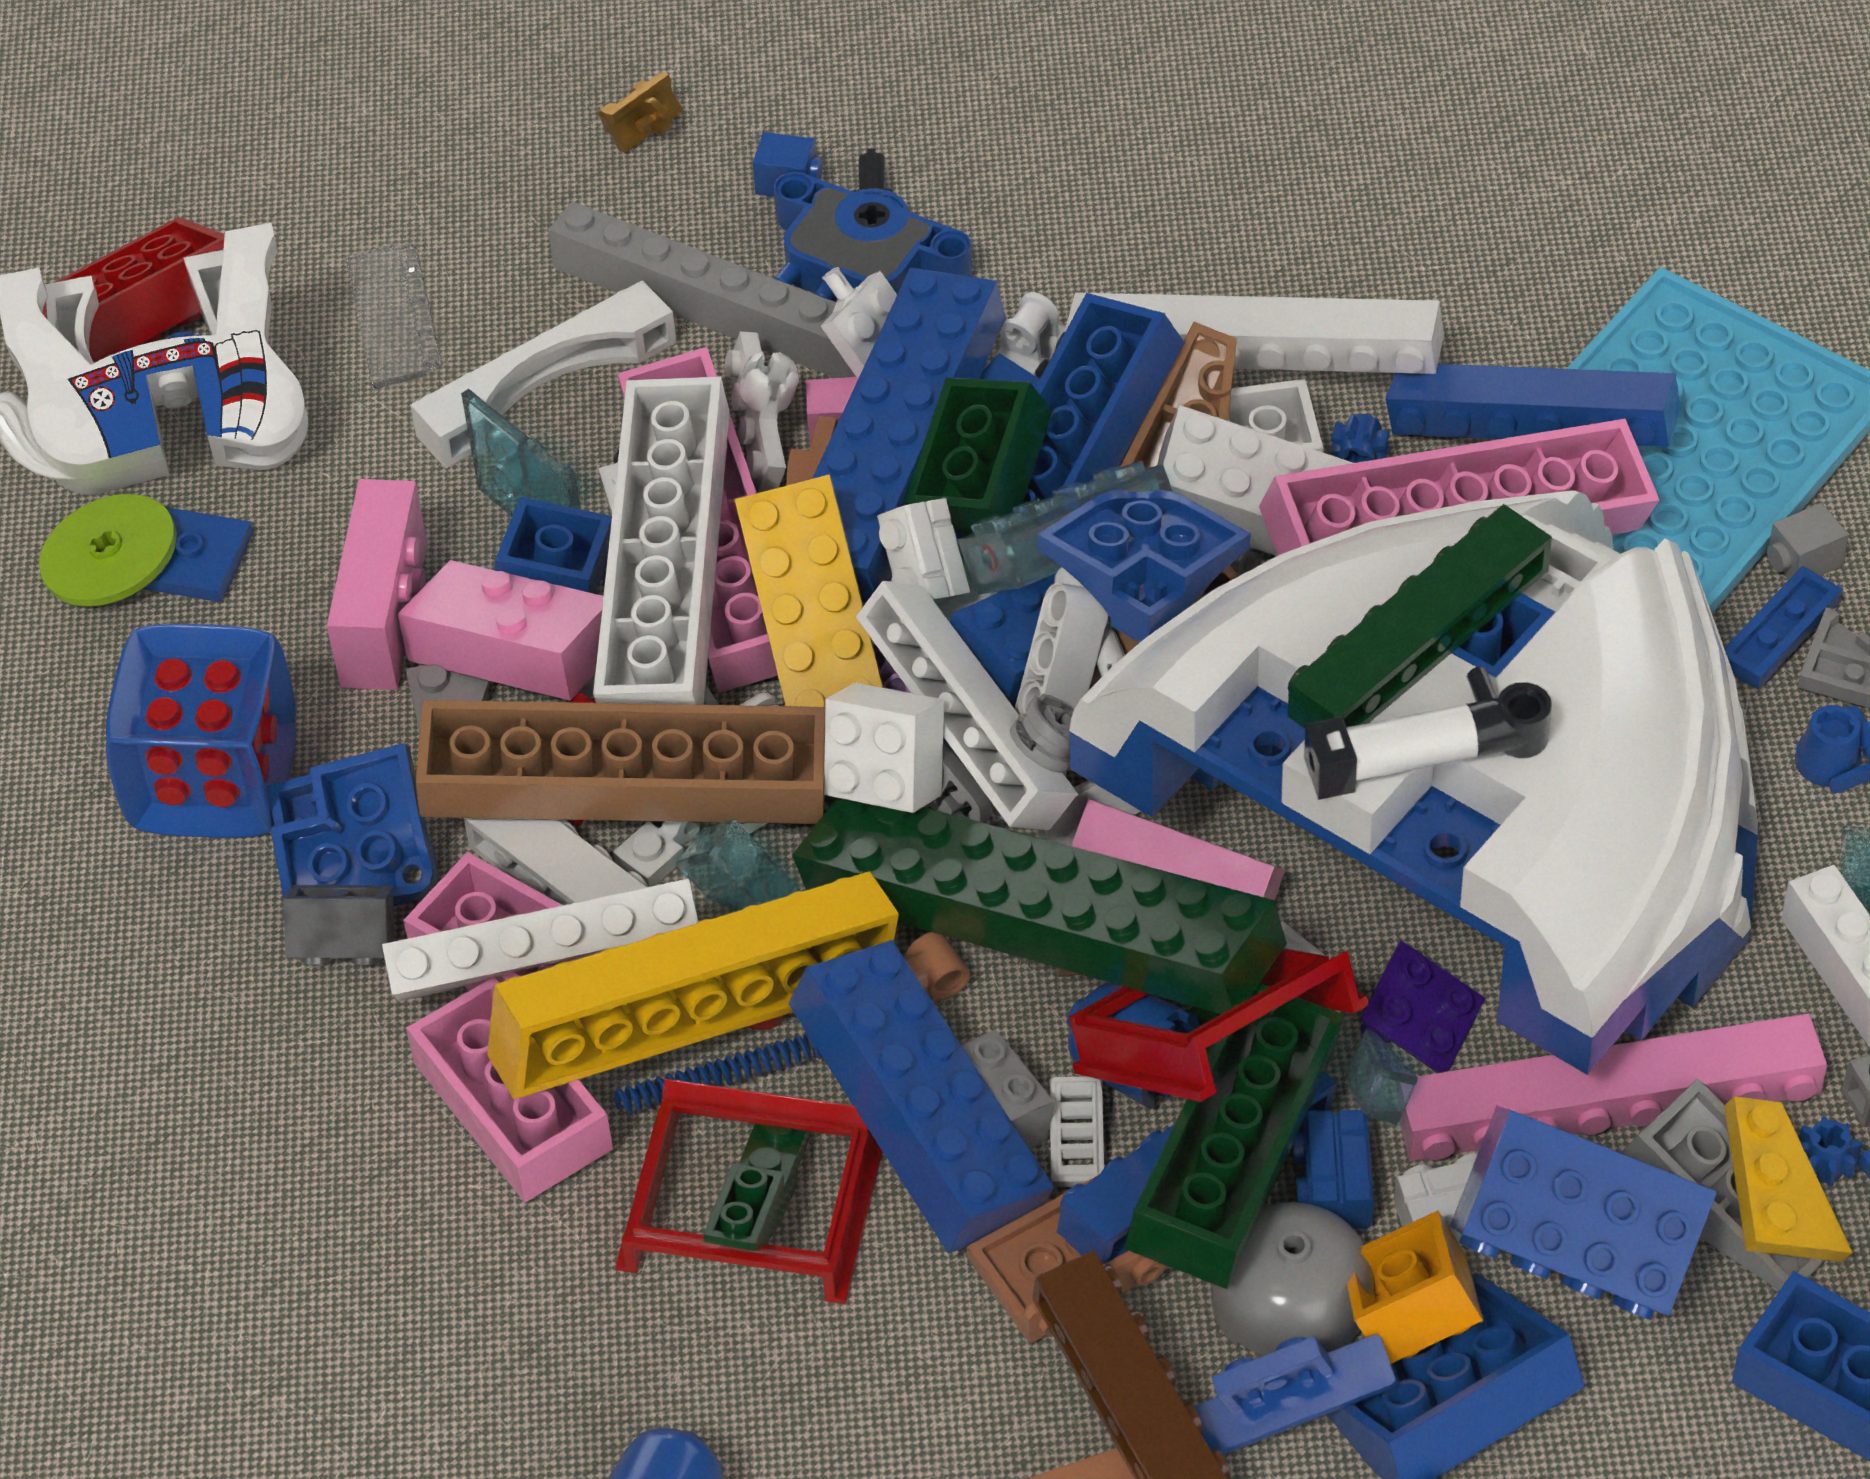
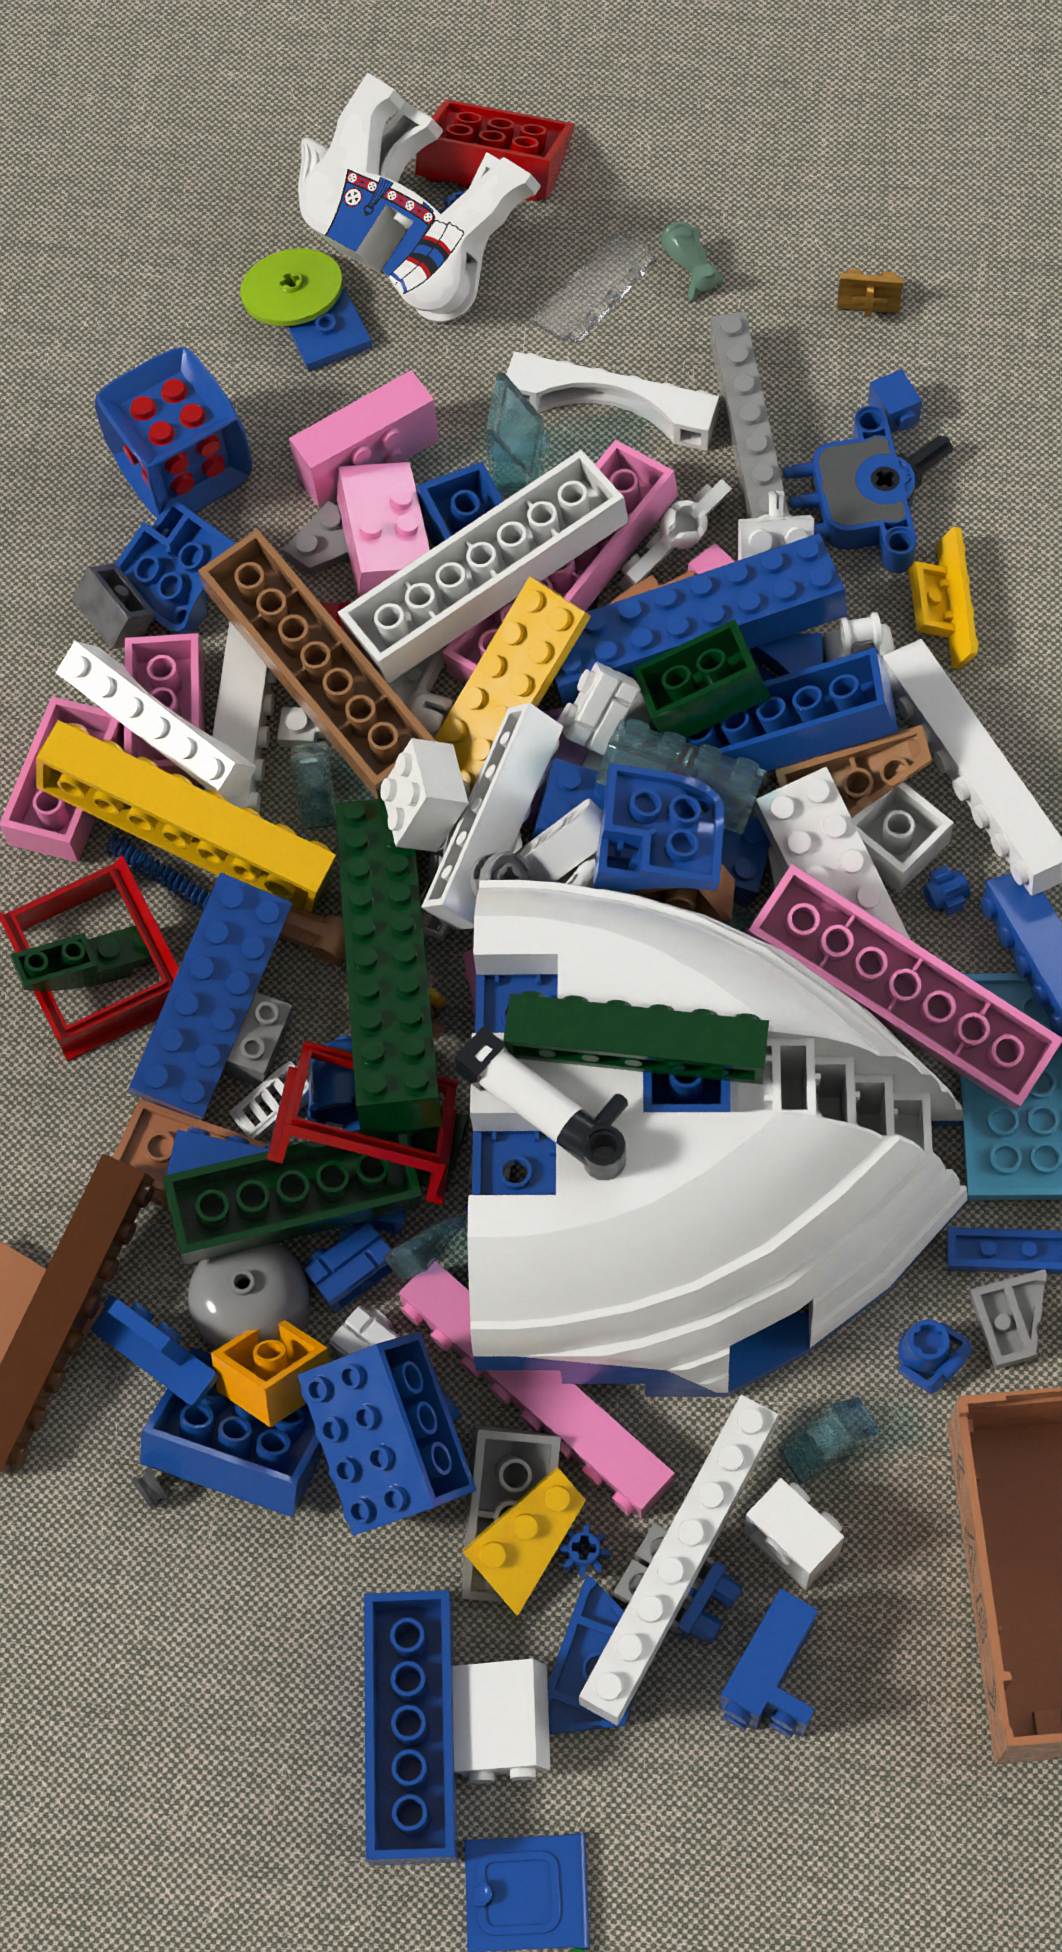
camera: 55 degrees right, 15 degrees up
(430, 211) = (682, 244): none -> sand green animal
(1042, 255) = (944, 598): none -> yellow bracket

